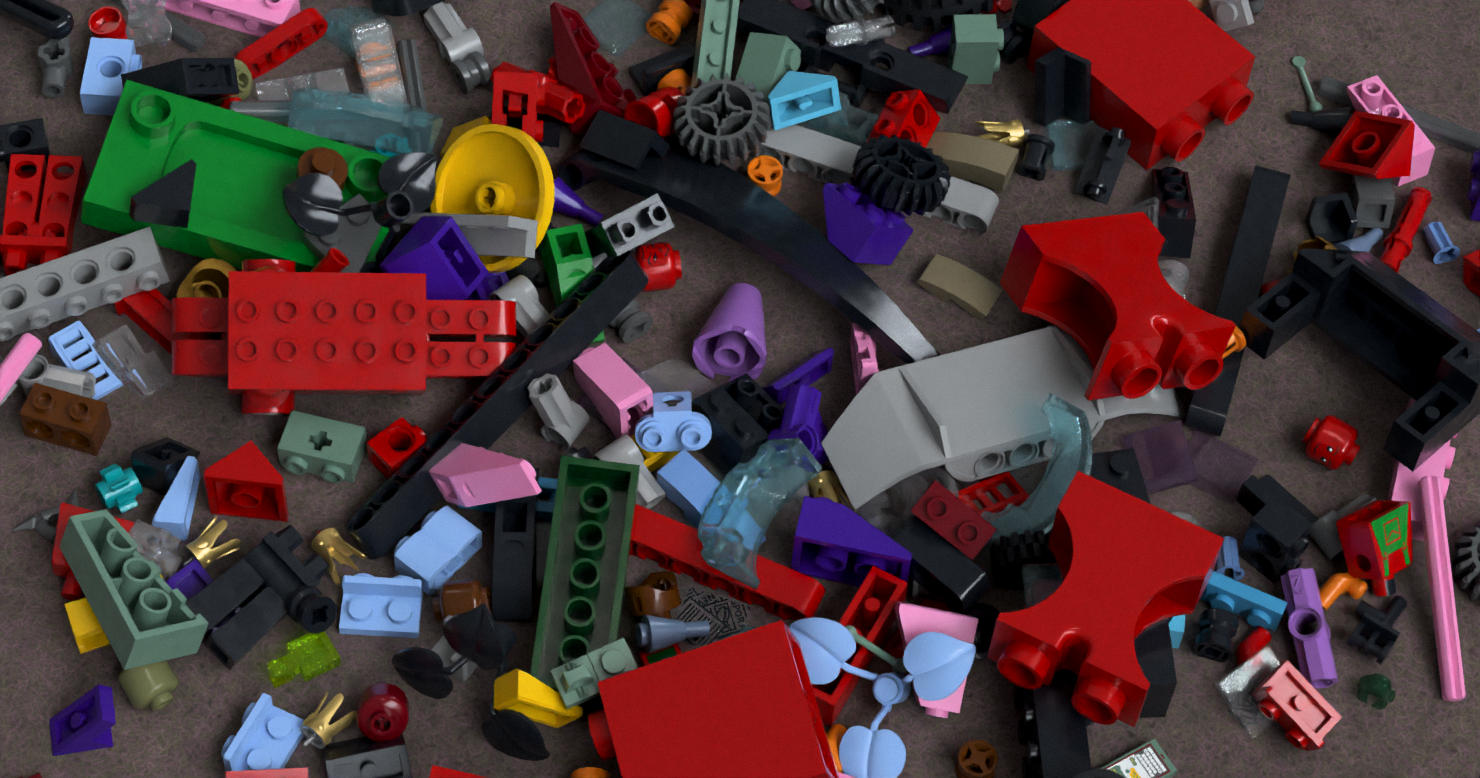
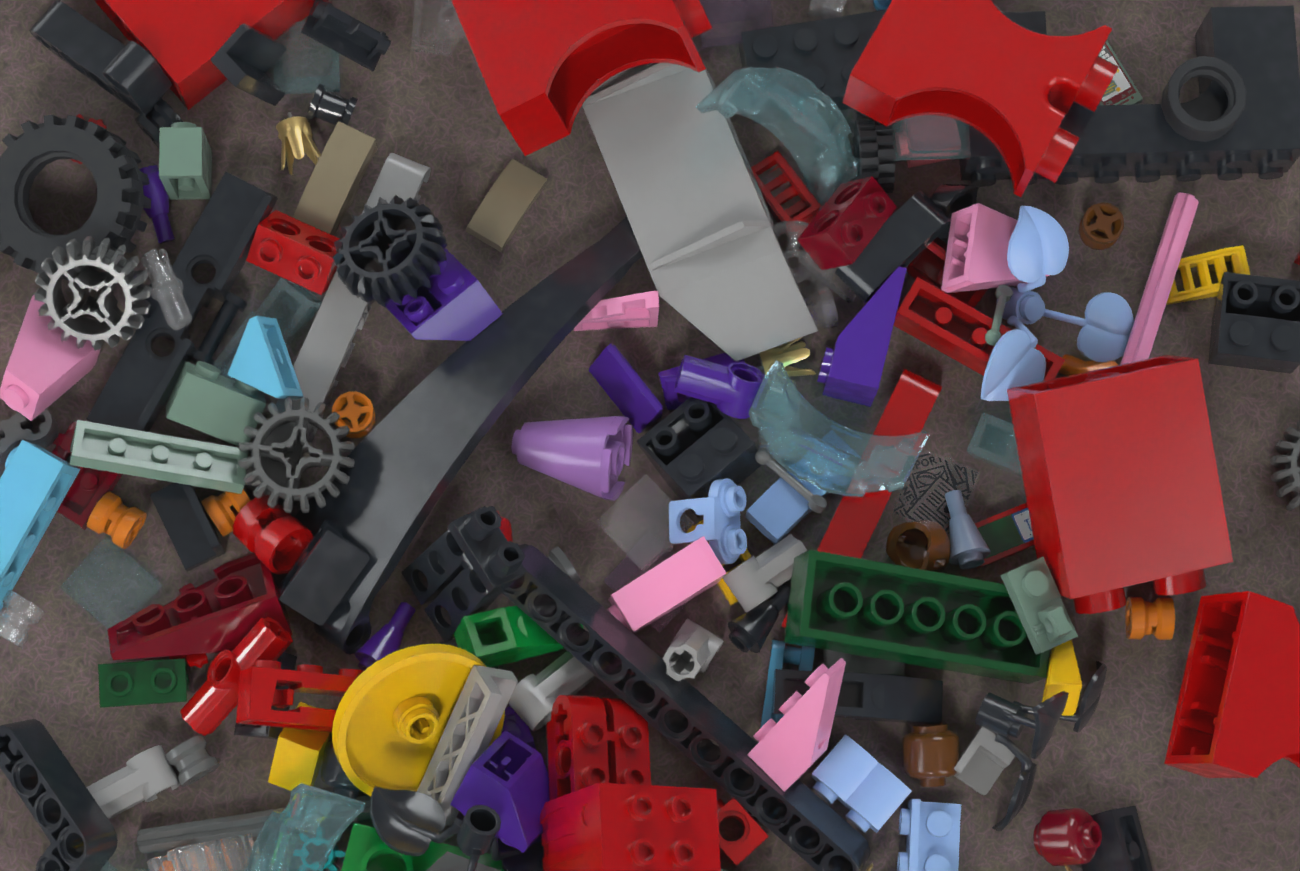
camera: 90 degrees left, 20 degrees up
(533, 37) = (143, 683): none -> dark green hinge
(691, 502) = (816, 502): none -> dark grey hinge

